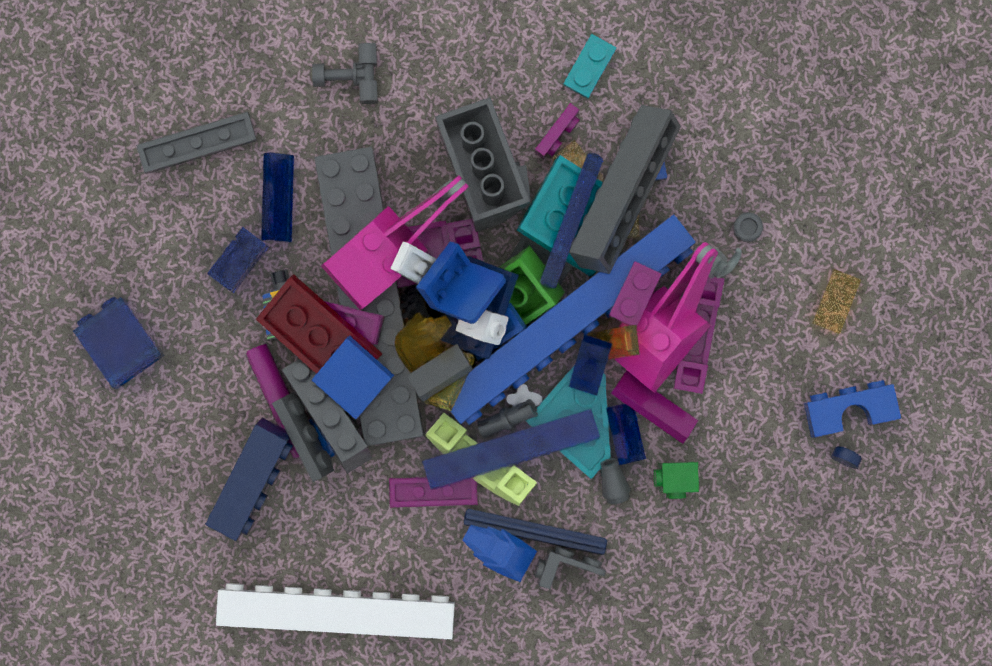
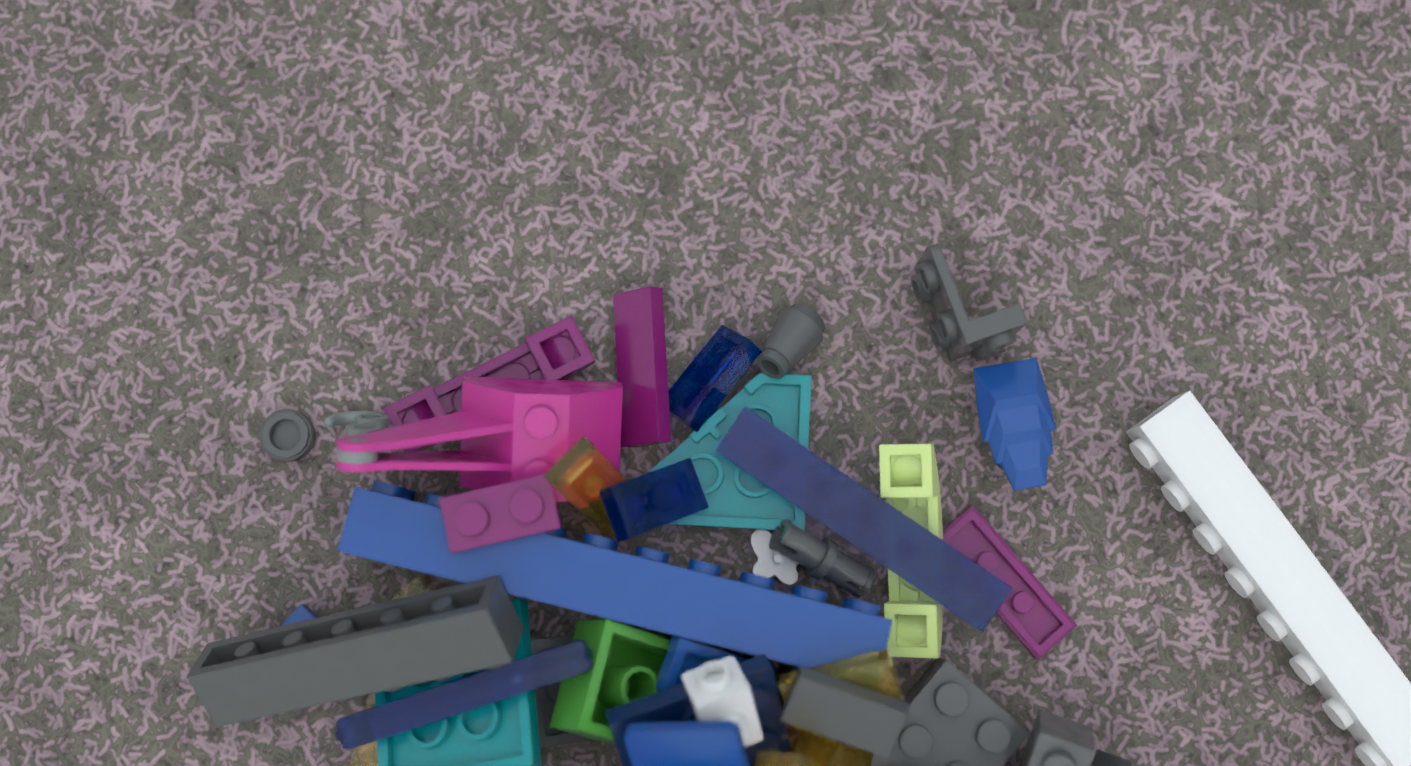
camera: 135 degrees left, 5 degrees down
(537, 531) = (944, 397): dark blue axle -> none
(676, 478) = (716, 254): green brick -> none
(826, 413) = (398, 73): blue arch -> none
(836, 301) = (301, 236): clear yellow tile -> none
(846, 457) = (506, 59): dark blue tile -> none

